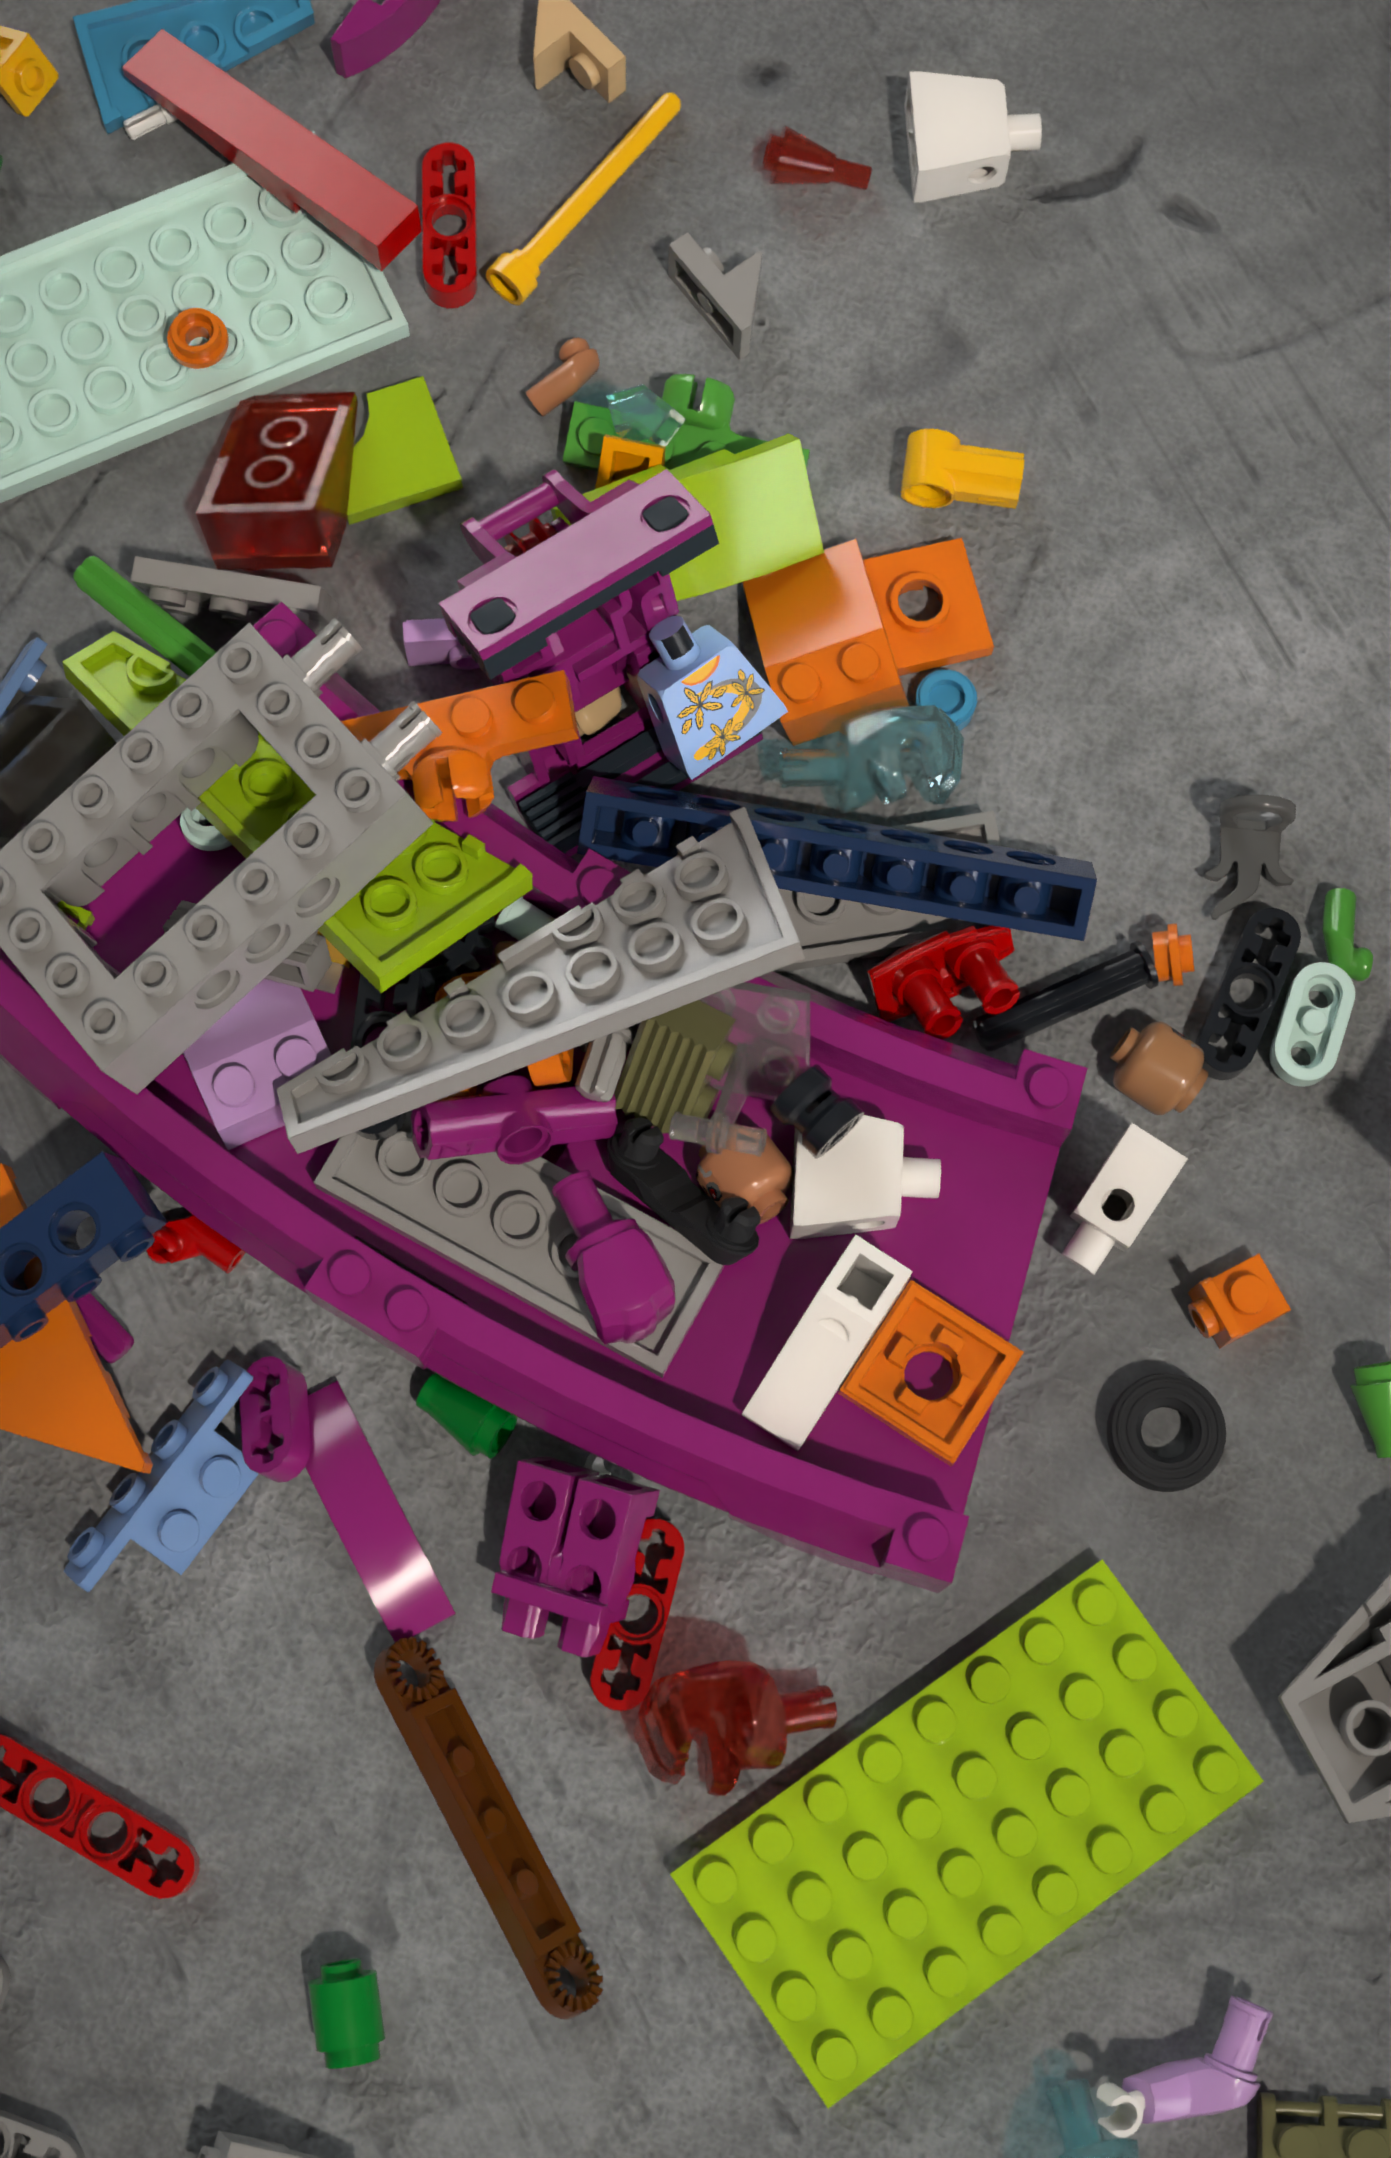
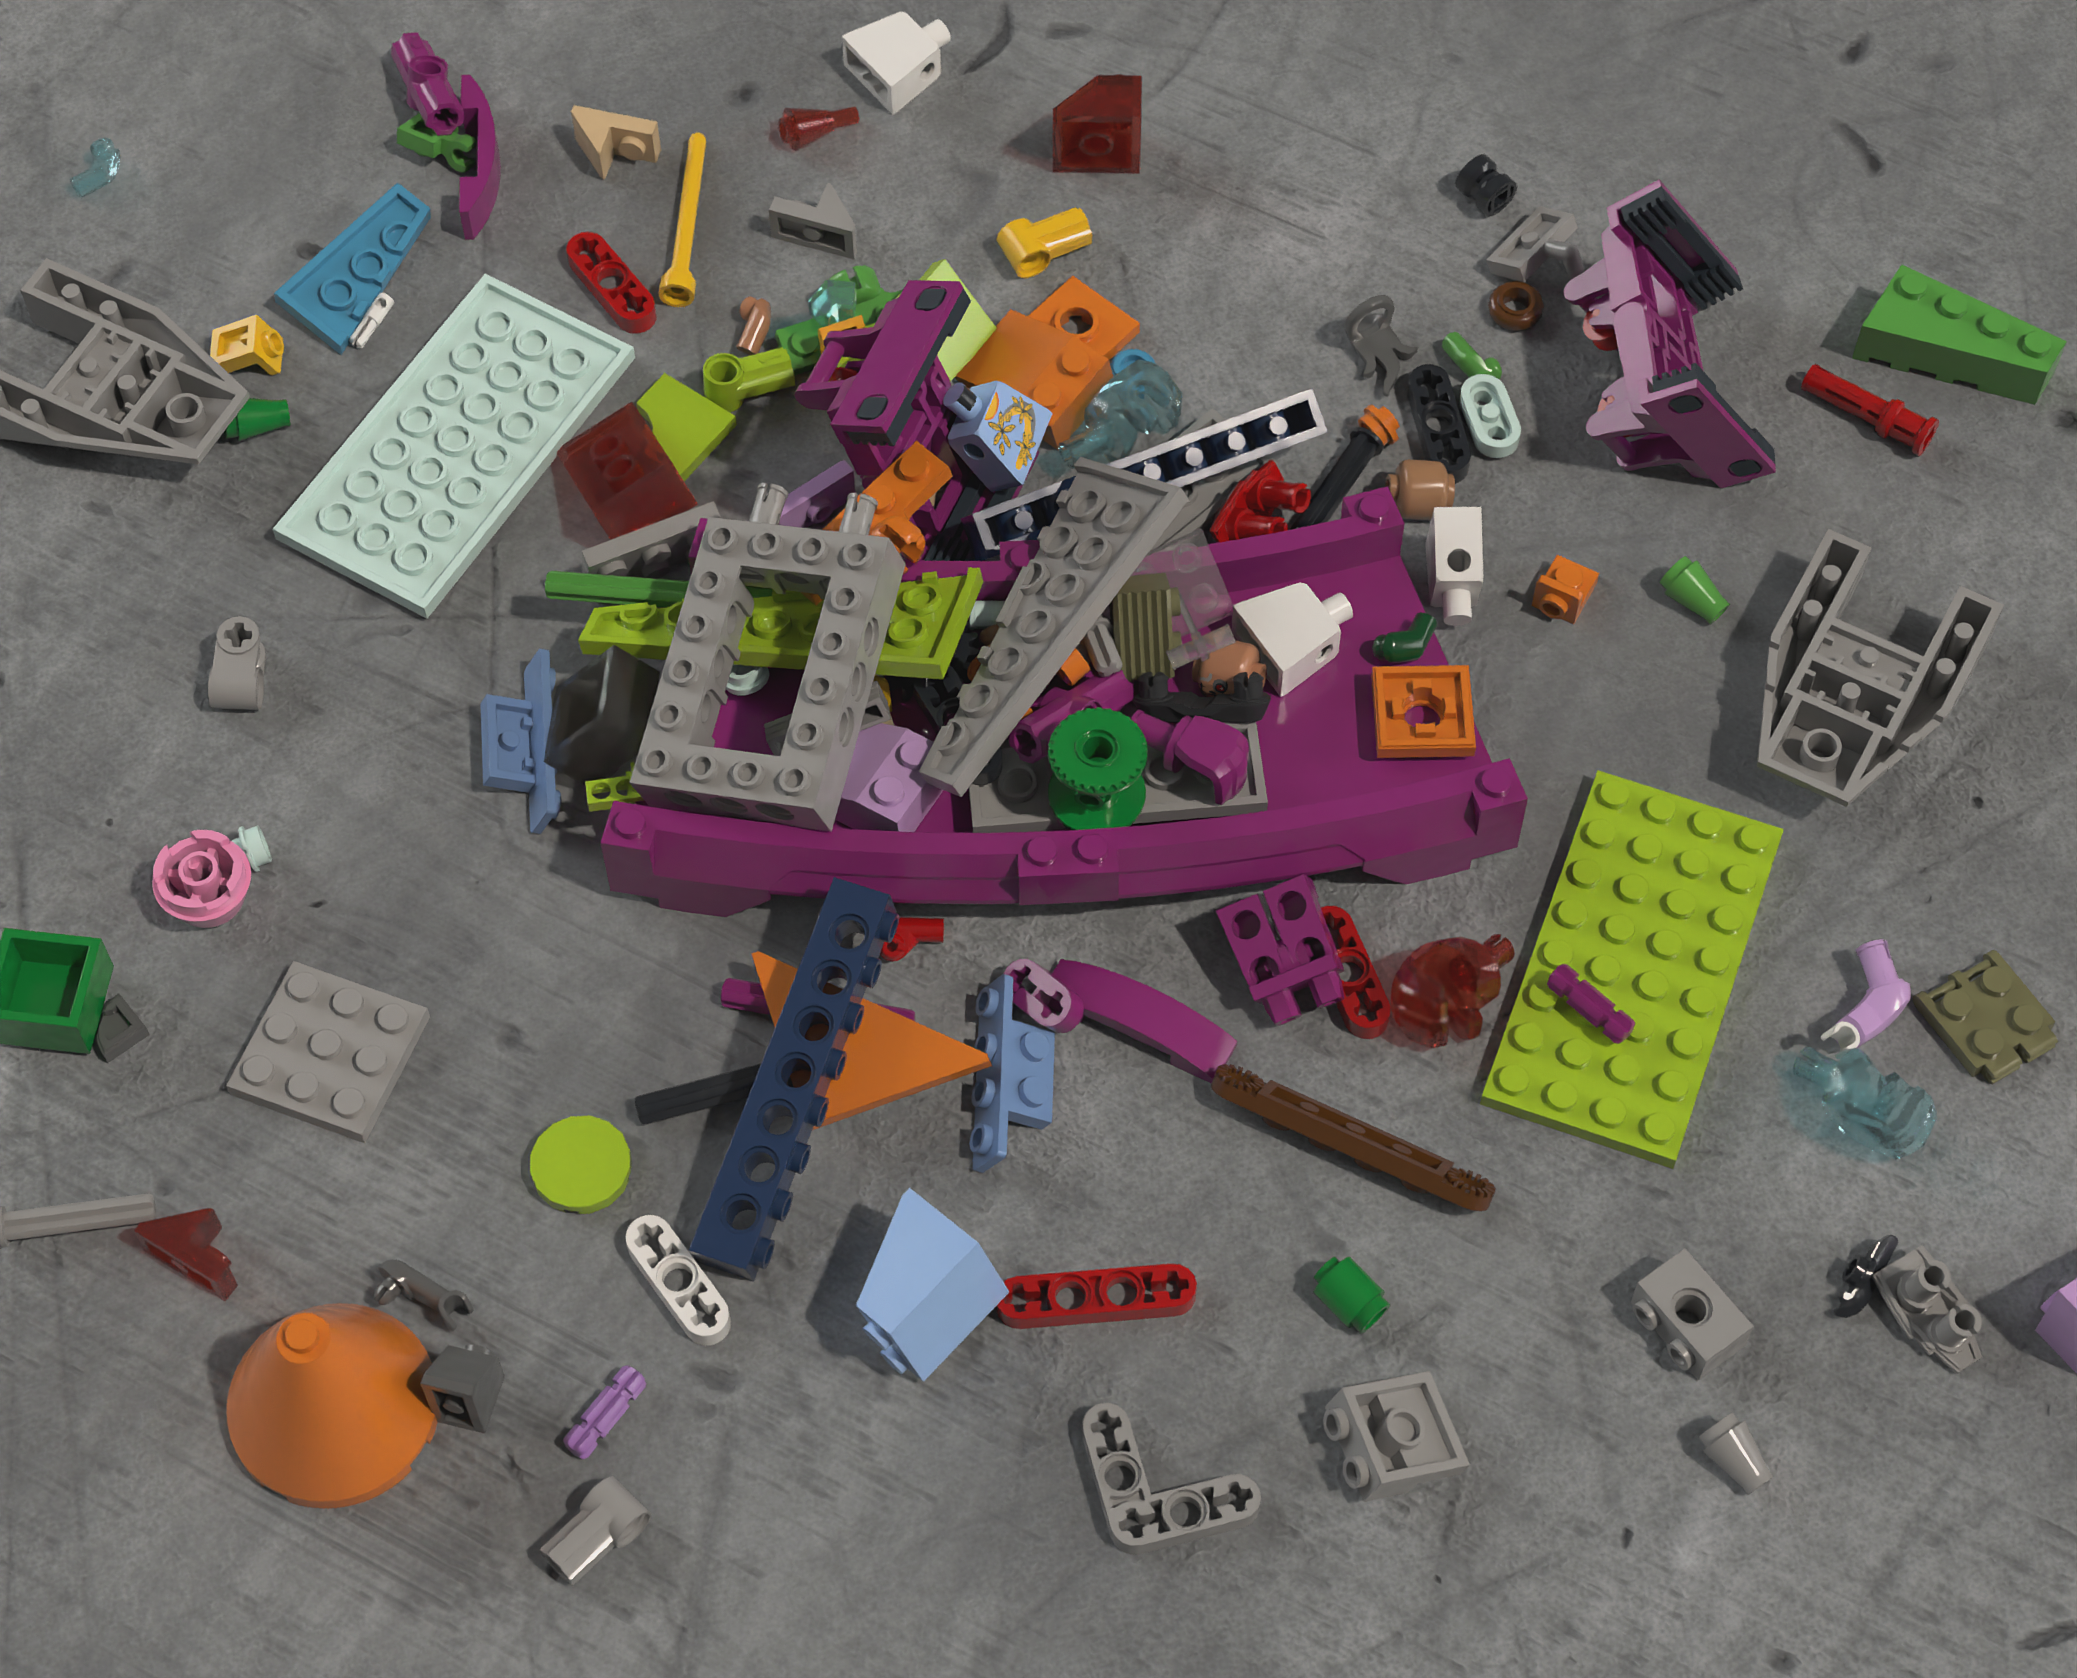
camera: 30 degrees left, 15 degrees down
(194, 324) = (507, 415): orange plate -> none
(276, 150) = (474, 291): slope -> none
(462, 1186) = (1097, 770): none -> green hose
(466, 1417) = (1159, 923): green cone -> none
(510, 439) = (733, 379): none -> lime piece
(816, 1111) = (1251, 595): black wheel -> none
(827, 1342) = (1351, 720): white slope -> none
(866, 1858) = (1591, 1003): none -> magenta axle
(976, 1274) = (1406, 645): none -> dark green arm
(1121, 369) = (1099, 127): none -> clear red slope
(1200, 1411) = (1575, 708): black tyre -> none

